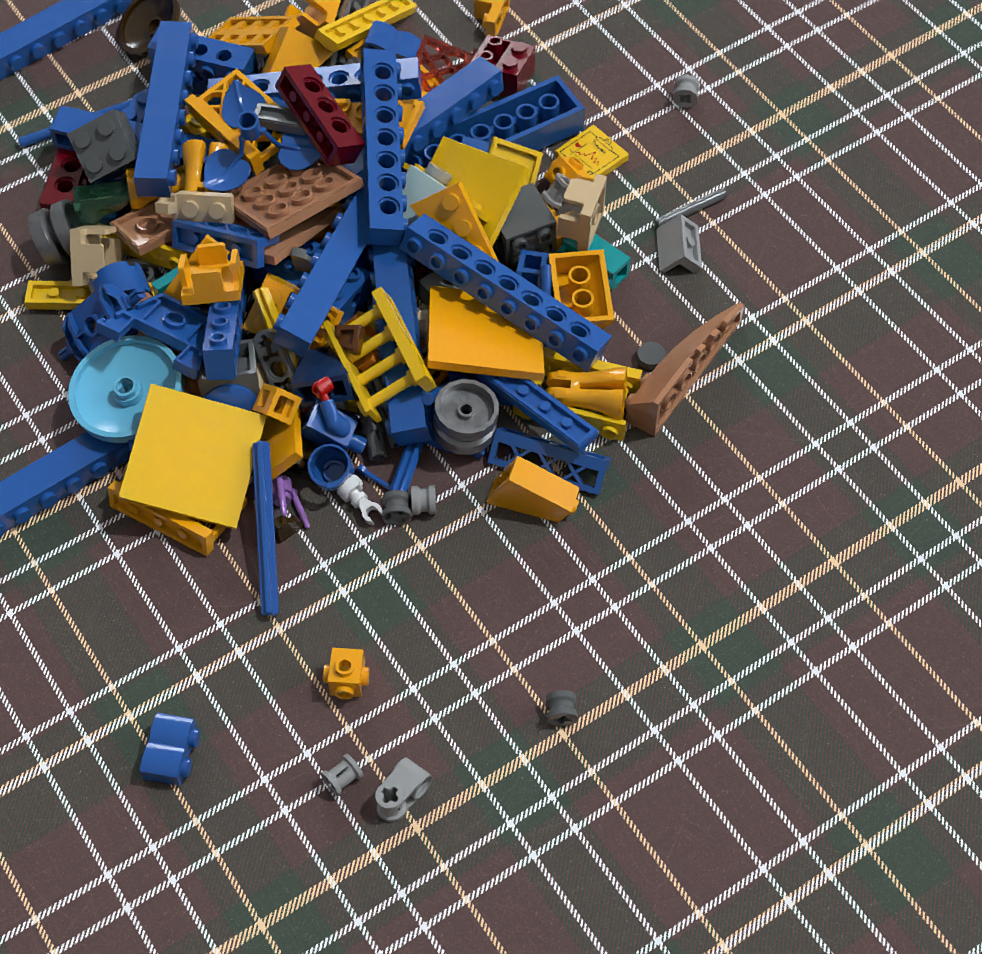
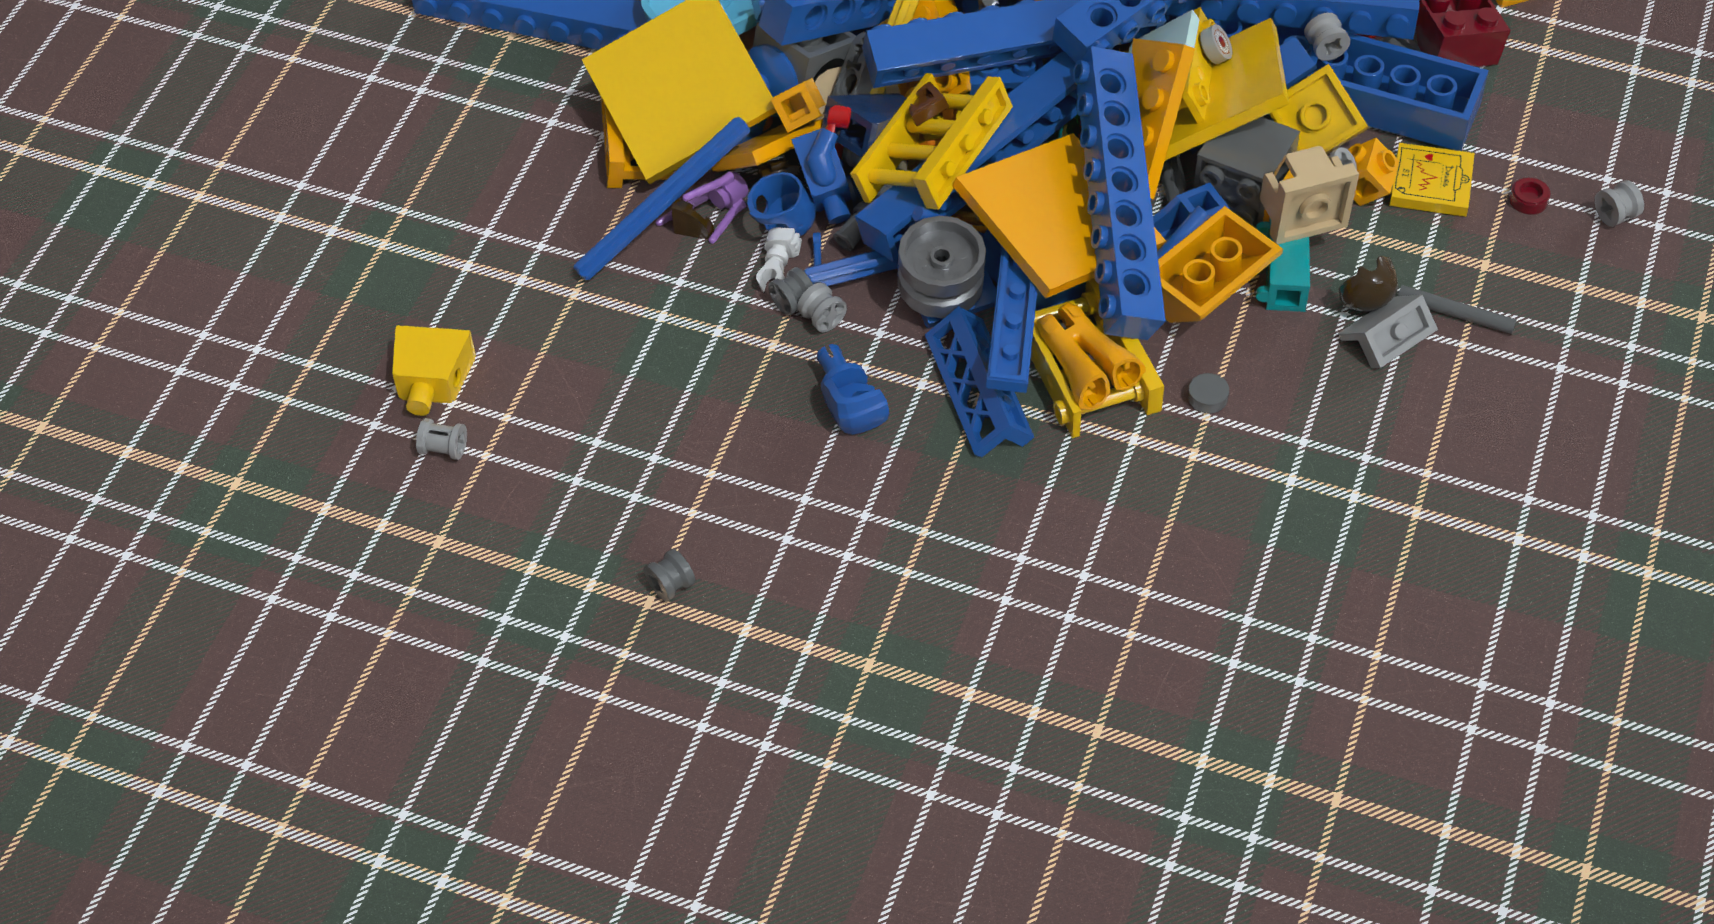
camera: 55 degrees right, 5 degrees down
(169, 749) = (362, 288): blue brick -> none
(274, 747) = (430, 365): none -> yellow torso
(346, 673) = (555, 368): light orange brick -> none
(404, 786) = (465, 495): light grey piece -> none
(473, 123) = (1327, 36): none -> light grey wheel
(500, 529) = (848, 396): none -> blue piece
(533, 491) = (915, 389): light orange slope -> none
(641, 123) = (1529, 196): none -> dark red tile
(651, 231) = (1370, 288): none -> dark brown hair
(678, 371) = (1216, 427): nougat wedge -> none

